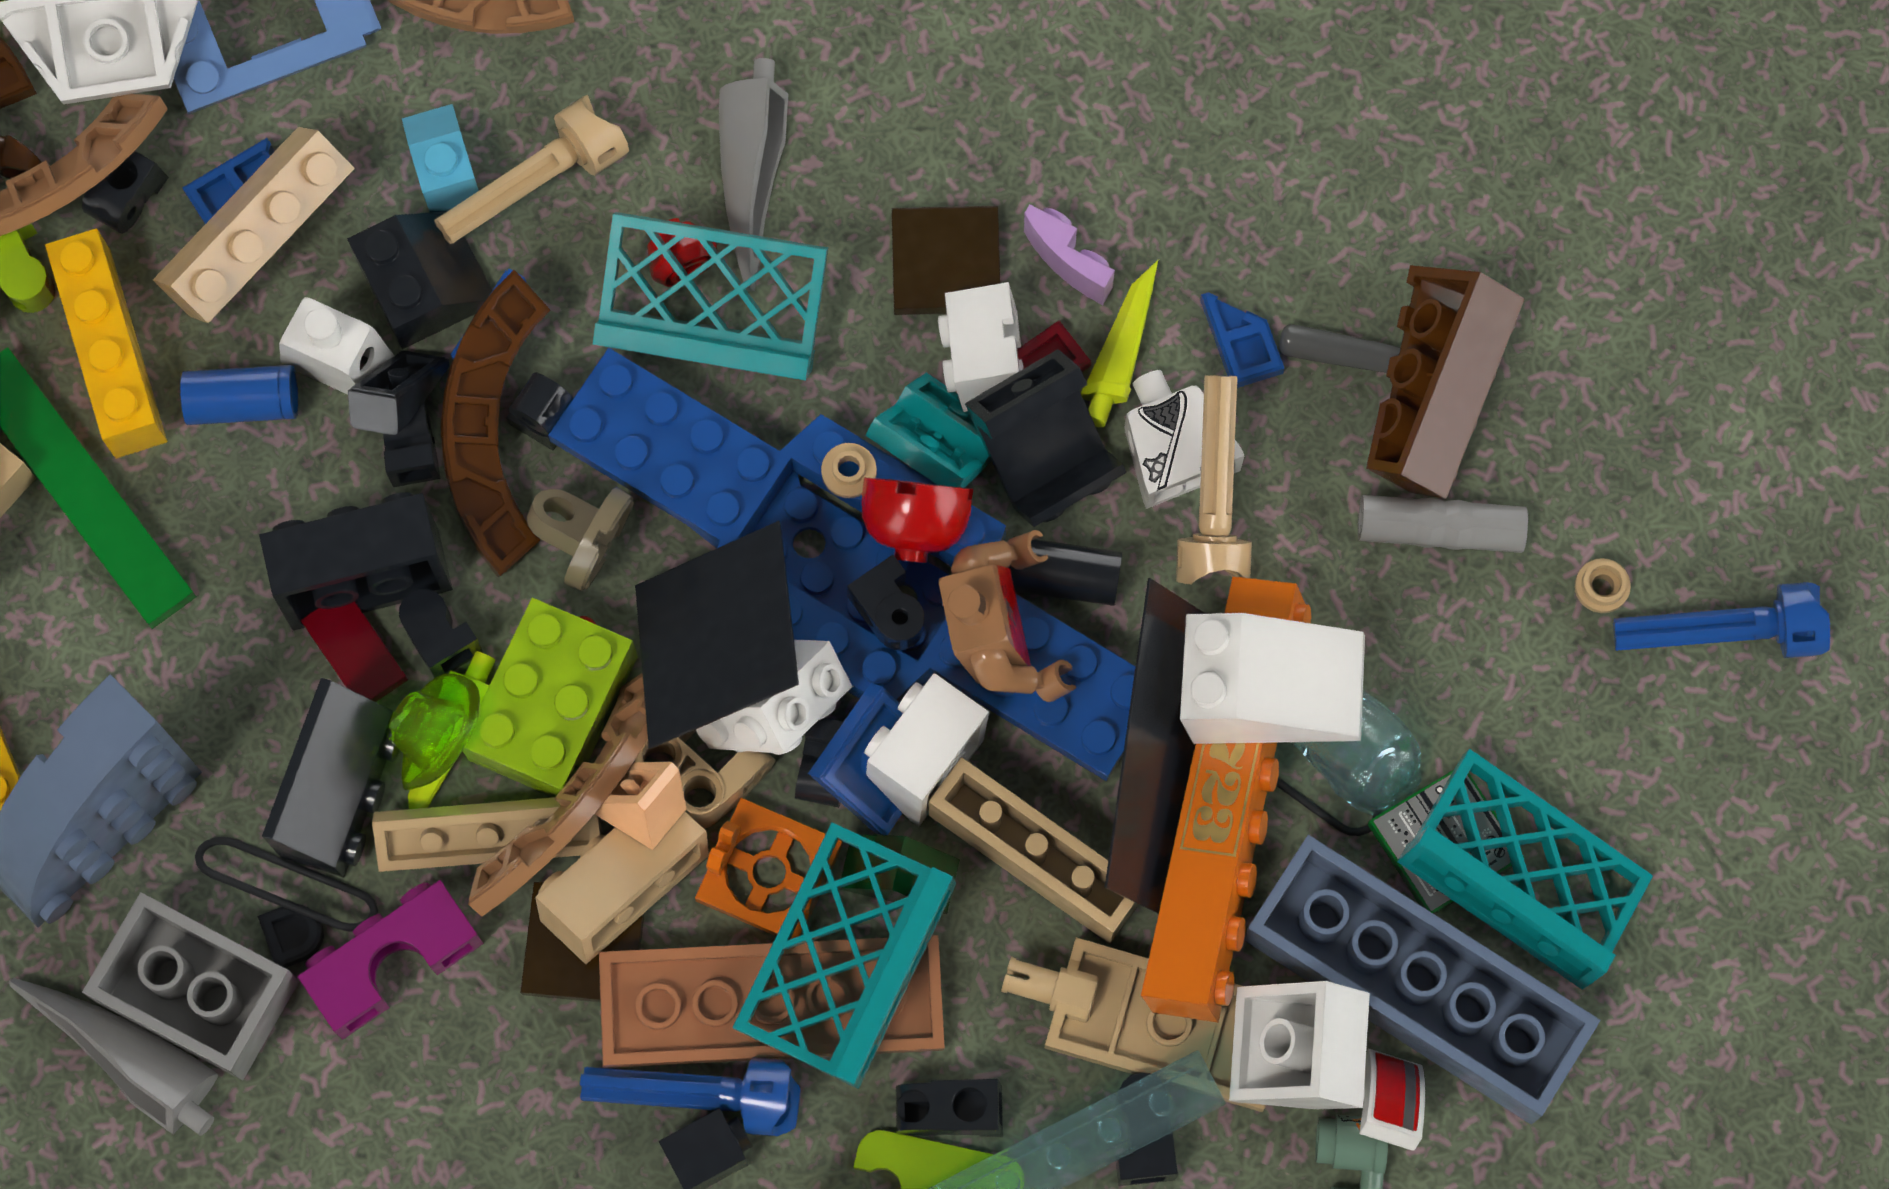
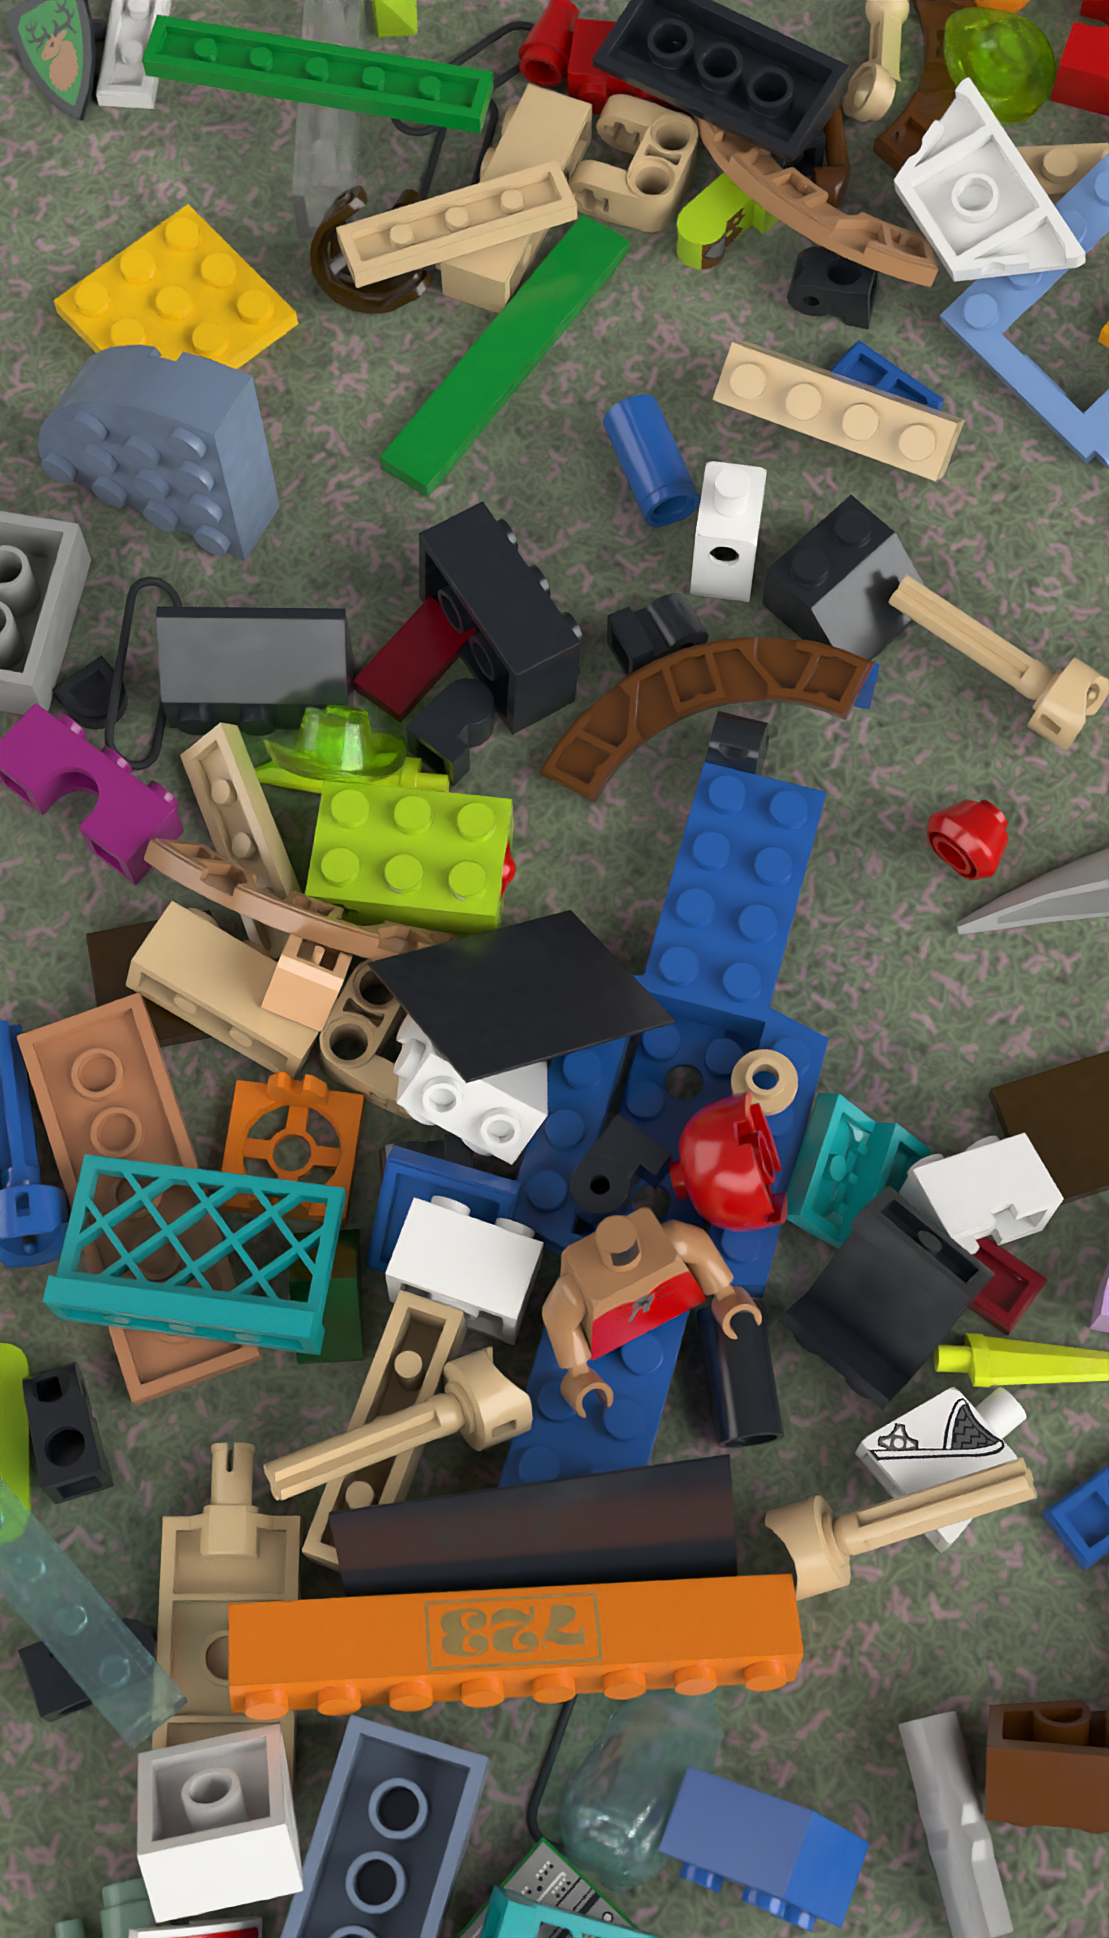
camera: 75 degrees right, 5 degrees down
(106, 343) = (661, 321): yellow brick -> none
(394, 391) = (700, 597): black slope -> none
(440, 158) = (985, 565): medium azure slope -> none
(584, 534) = (603, 837): dark tan tile -> none
(704, 342) = (876, 906): teal fence -> none
(1038, 769) = (475, 1402): none -> tan piece
(1270, 680) = (660, 1651): white slope -> none
(1426, 652) = (777, 1850): none -> blue brick

